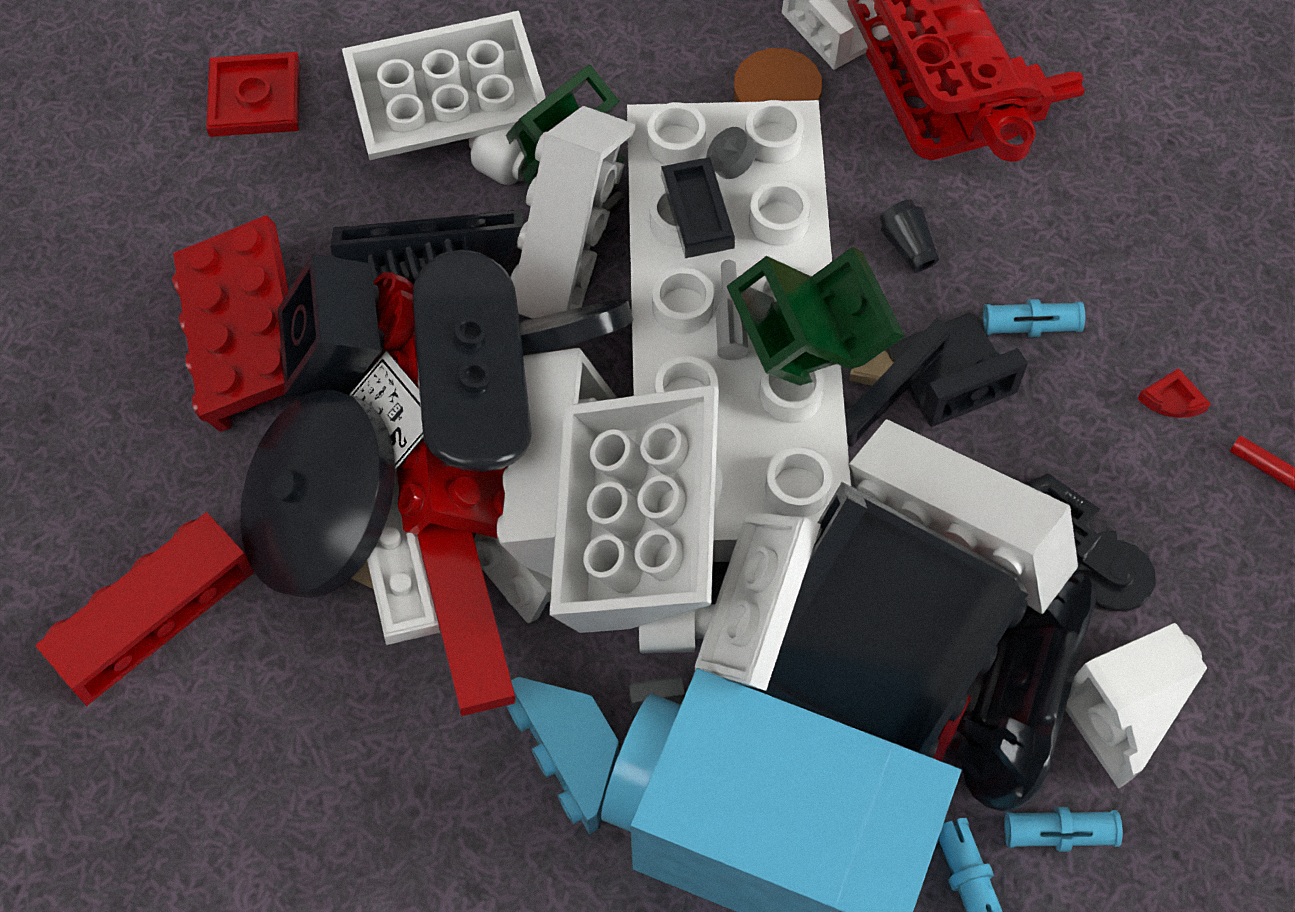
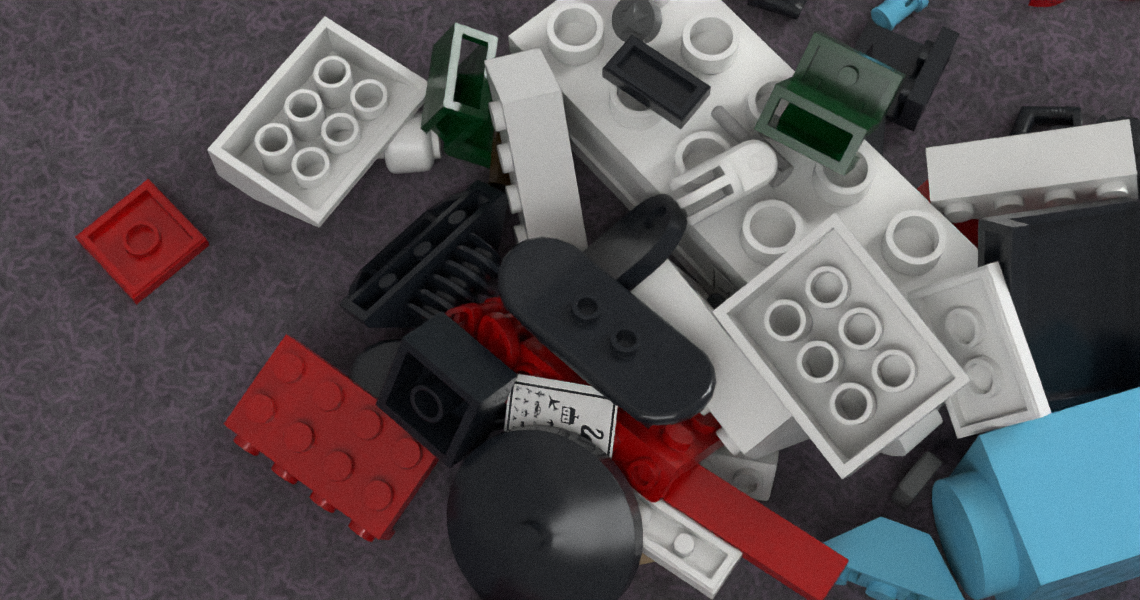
camera: 40 degrees left, 5 degrees up
(688, 314) = (735, 173): none -> white arm

